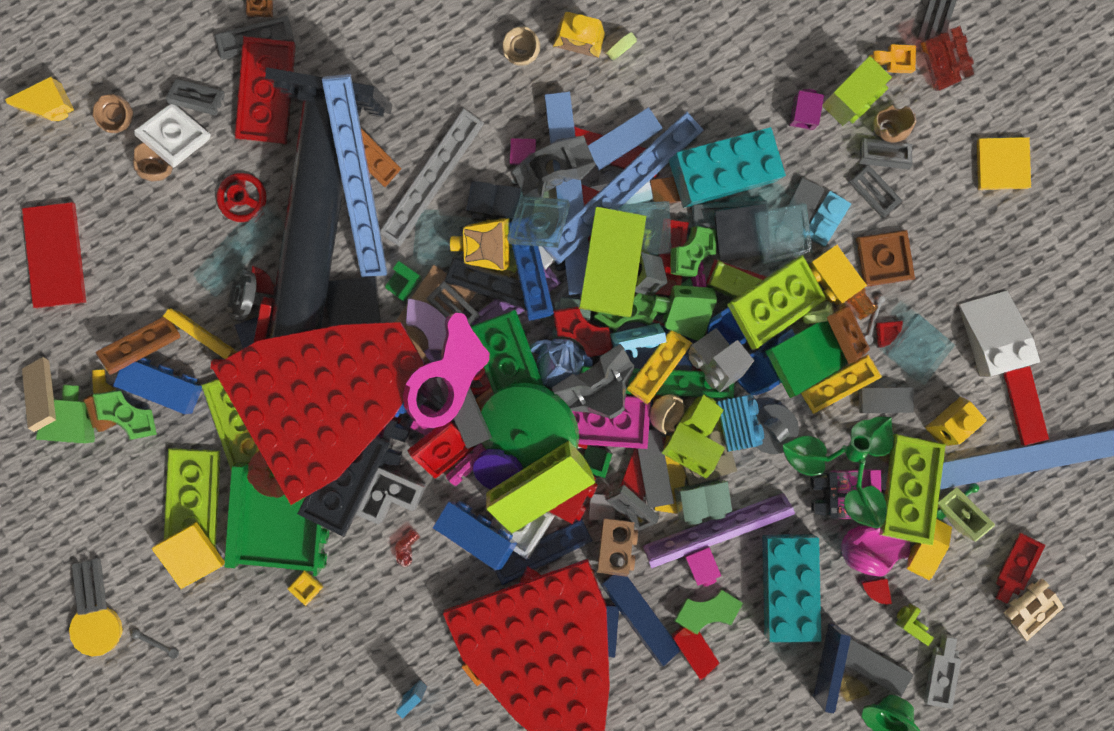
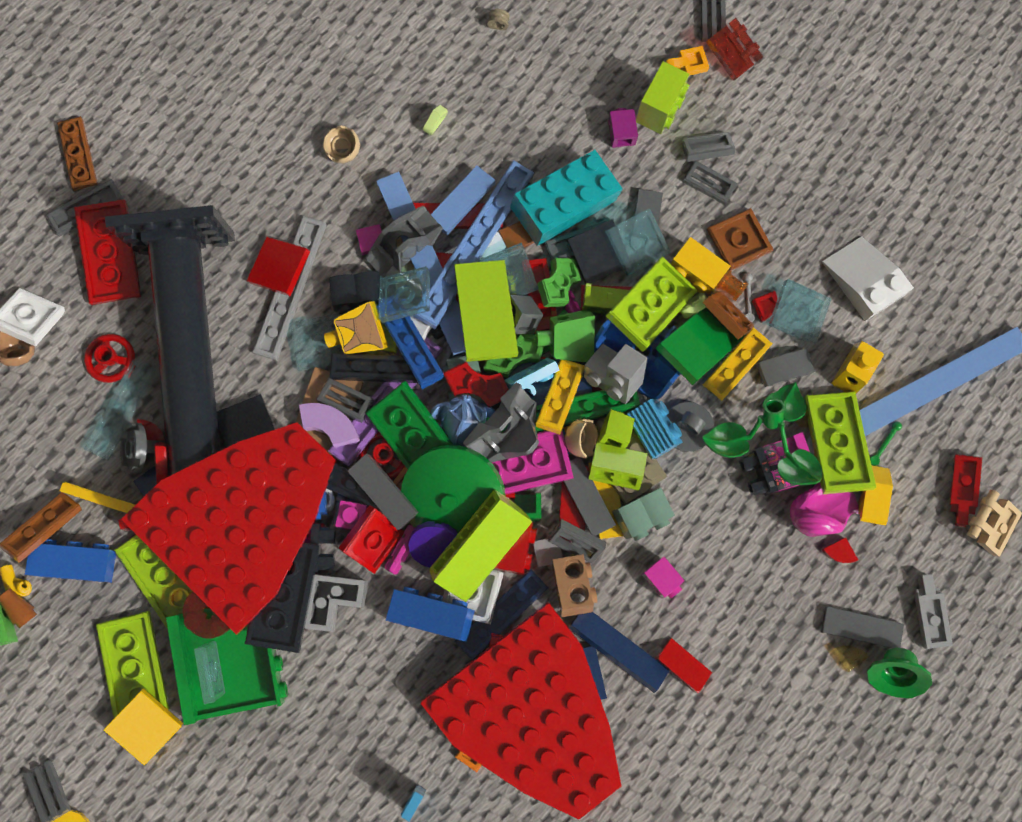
camera: 20 degrees left, 10 degrees down
(115, 408) = (31, 597): bright green tile -> none
(193, 99) = (45, 276): dark grey tile -> none
(259, 528) = (209, 672): none -> clear light blue tile
(305, 587) = (272, 724): yellow tile -> none
(355, 173) = (216, 298): medium blue tile -> none
(378, 162) = (225, 279): dark orange tile -> none
(403, 281) = (289, 390): green panel -> none
(403, 548) = (362, 652): clear red arm -> none
(425, 154) = (278, 266): none -> red tile
(461, 360) = (366, 446): dark pink animal -> none
(580, 34) = (393, 118): yellow torso -> none
(718, 530) = (667, 539): medium lavender tile -> none
(719, 608) = (694, 617): bright green tile -> none
(791, 588) = (757, 573): teal brick -> none
(827, 218) = (674, 218): medium azure plate -> none
(831, 668) = (822, 638): dark blue tile -> none
(901, 120) = (711, 113): medium nougat hair -> none
(908, 622) = (888, 577): lime bracket -> none
(965, 515) = (896, 452): yellowish green slope -> none
(1003, 163) = (817, 125): yellow tile -> none
(1026, 405) = (916, 335): red tile -> none

